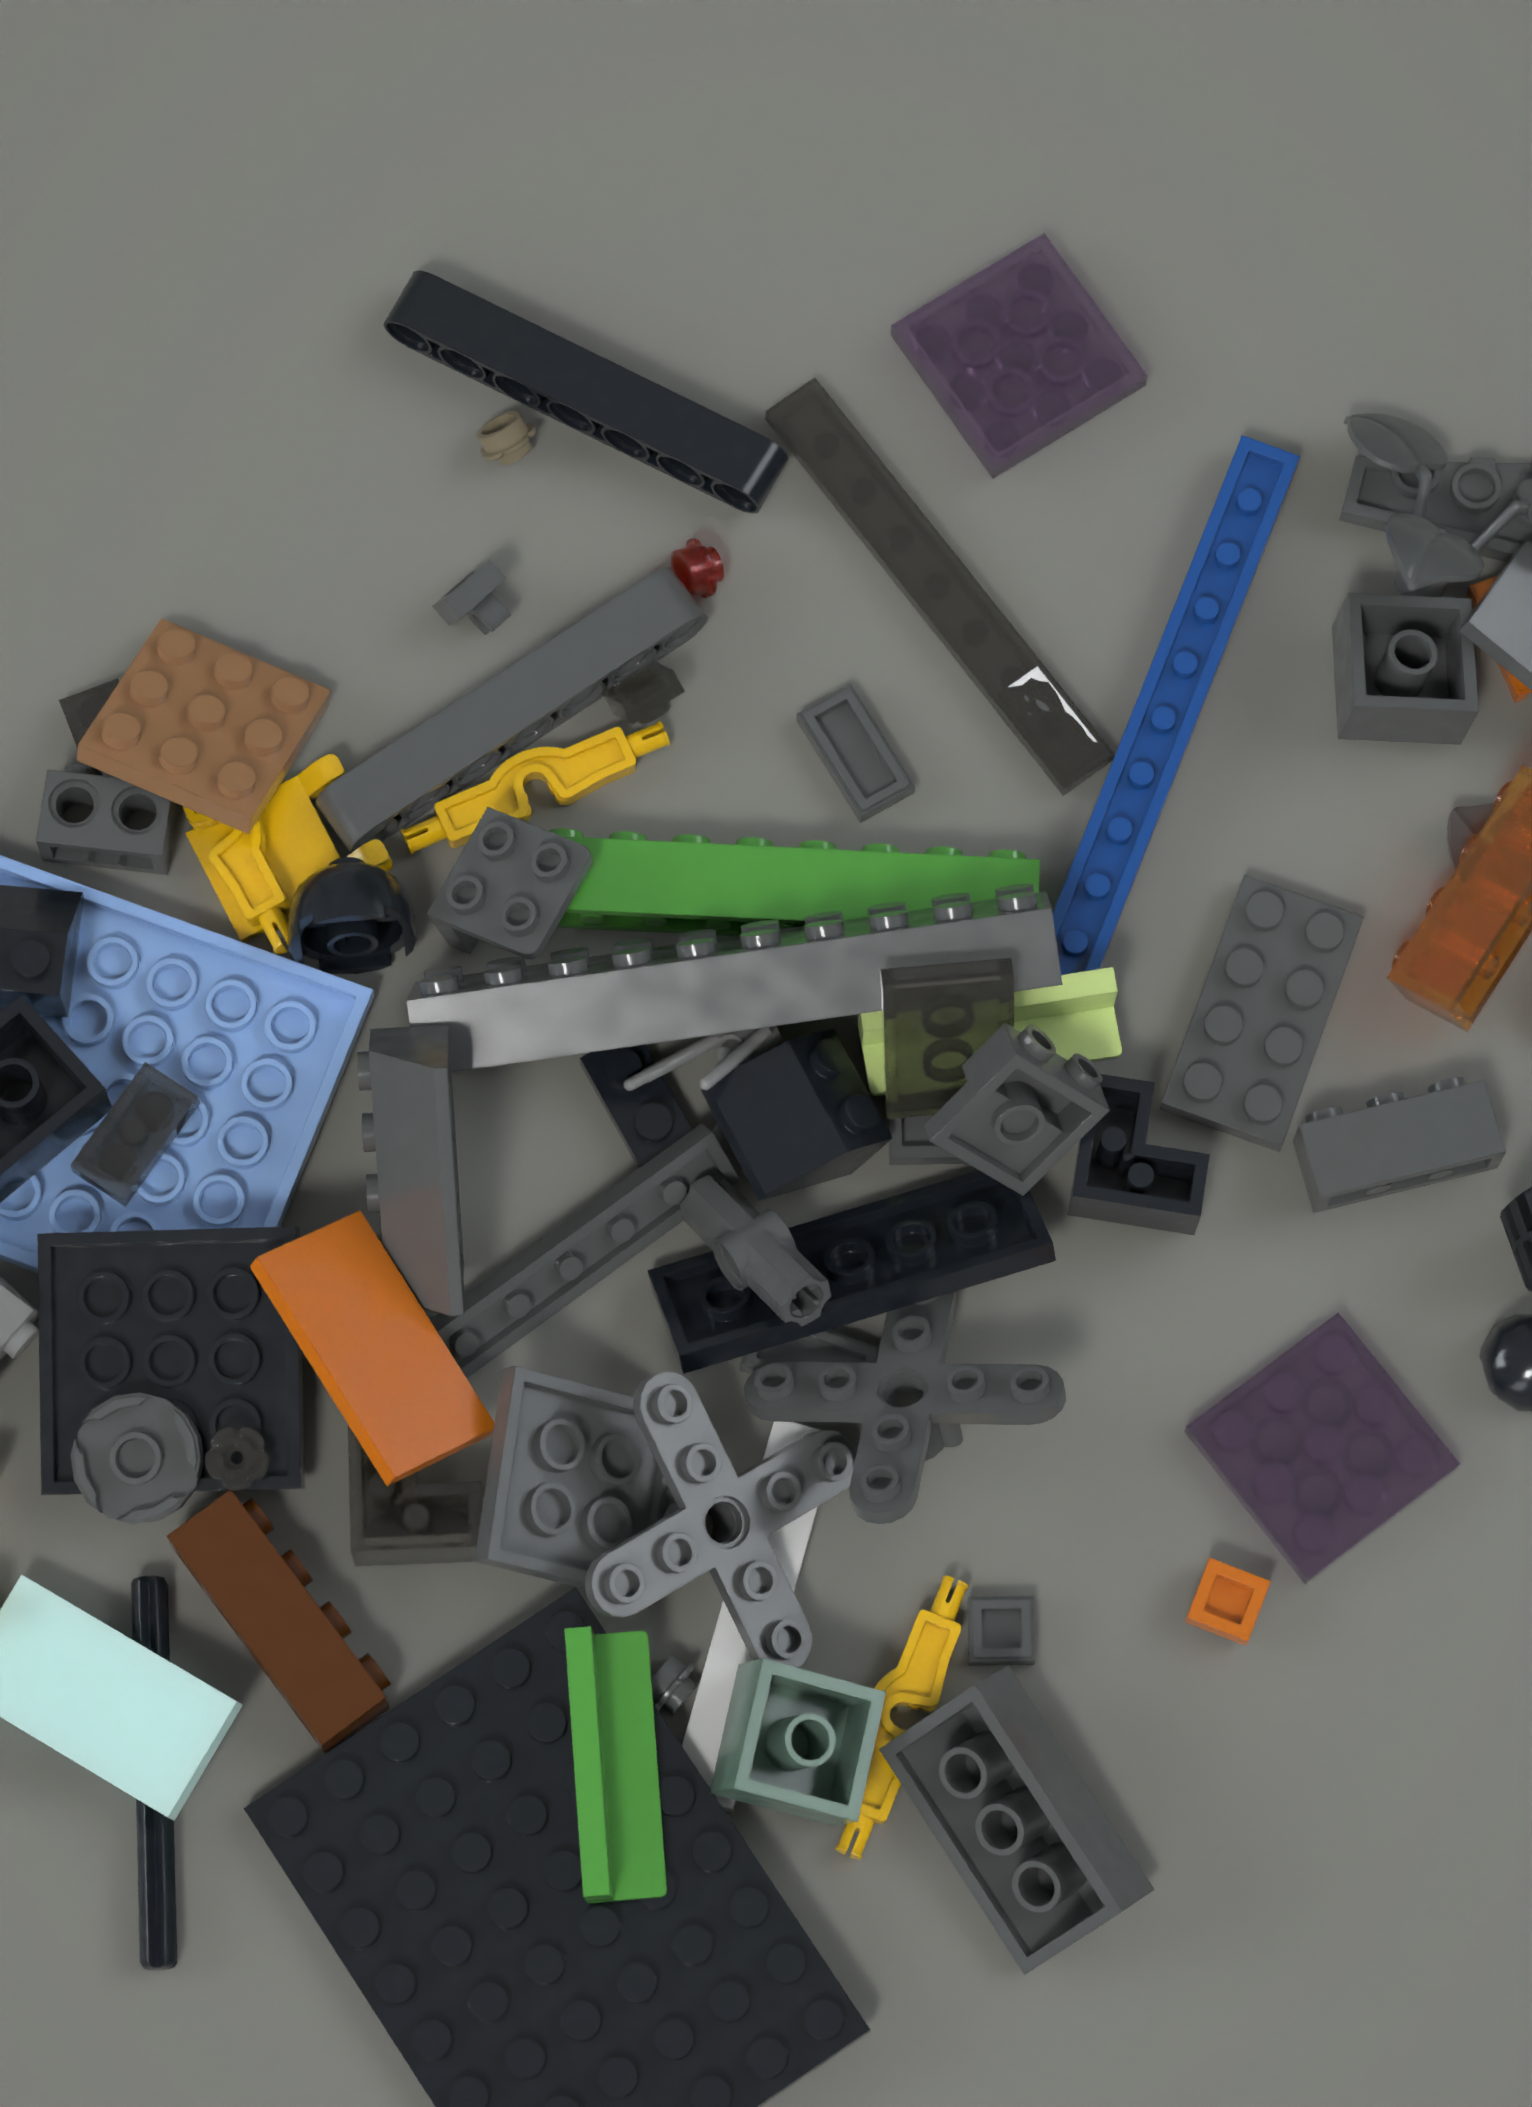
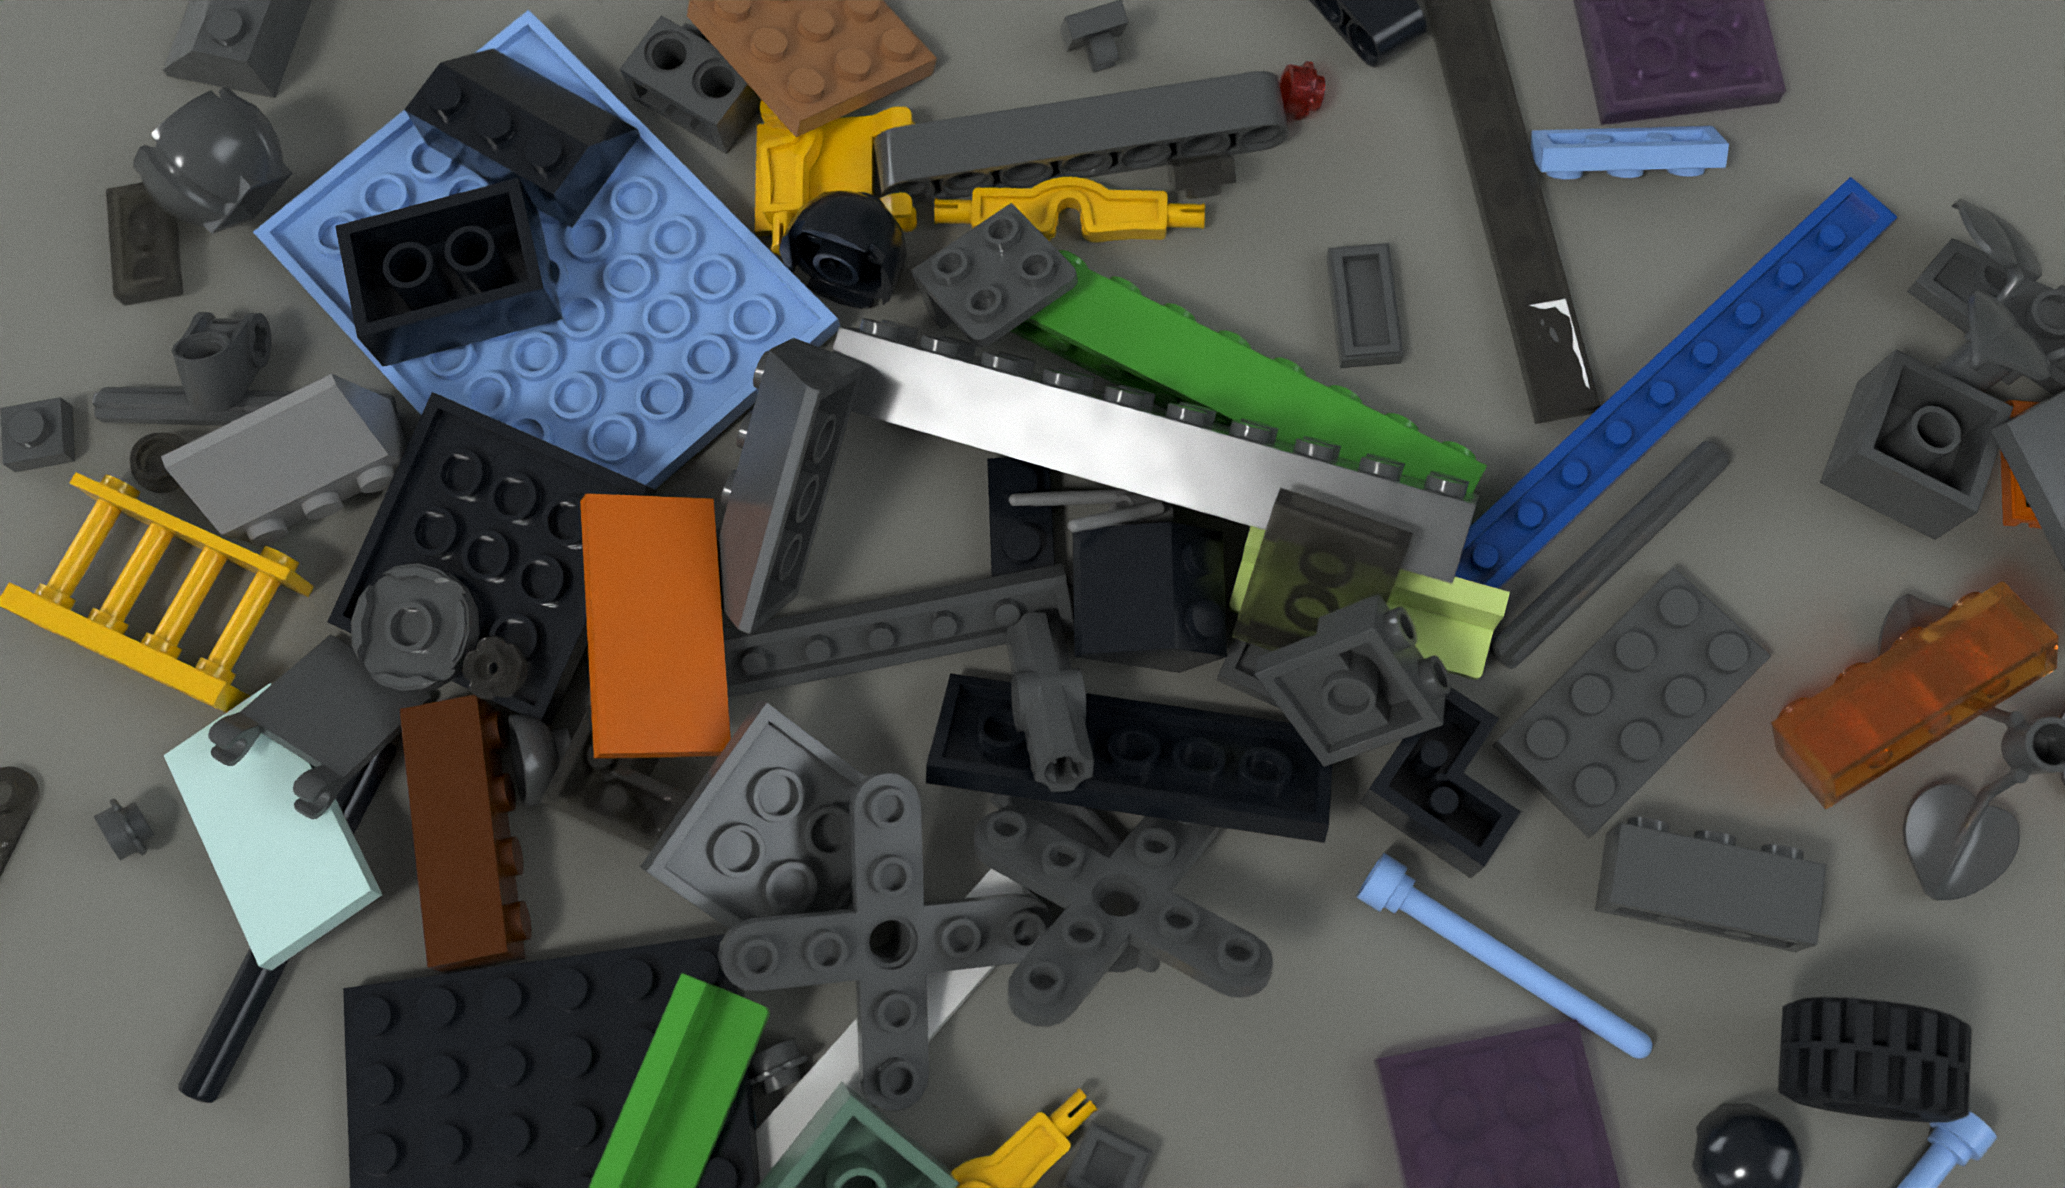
camera: 35 degrees right, 0 degrees up
(95, 1573) = (323, 713): none -> dark grey flag
(135, 1134) = (565, 347): clear smoke plate -> none
(309, 1523) = (535, 755): none -> dark grey piece
(1029, 496) = (1628, 151): none -> light blue plate
(1132, 1275) = (1393, 889): none -> light blue piece
(1183, 888) = (1608, 554): none -> dark grey axle

